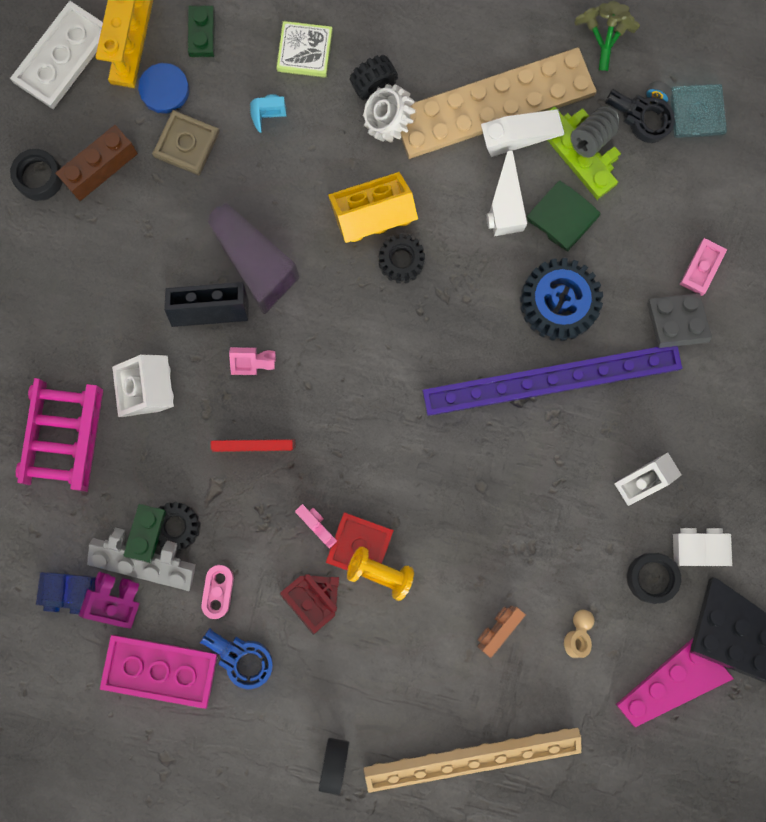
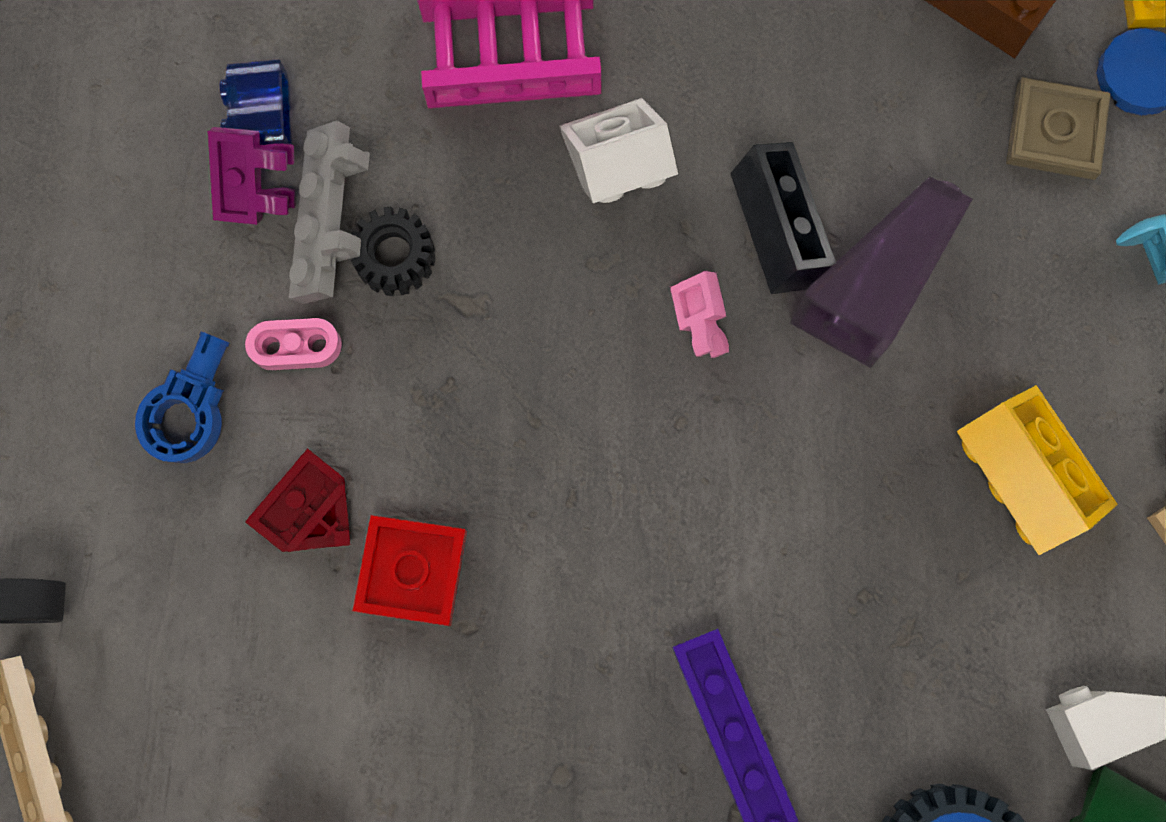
camera: 85 degrees right, 5 degrees down
(144, 533) = (365, 200): dark green plate -> none
(159, 671) = (148, 280): dark pink plate -> none
(253, 445) = (551, 345): red tile -> none
(313, 519) = (439, 477): bright pink plate -> none
(397, 580) = (357, 652): yellow hose -> none
(401, 243) = (978, 524): black tyre -> none

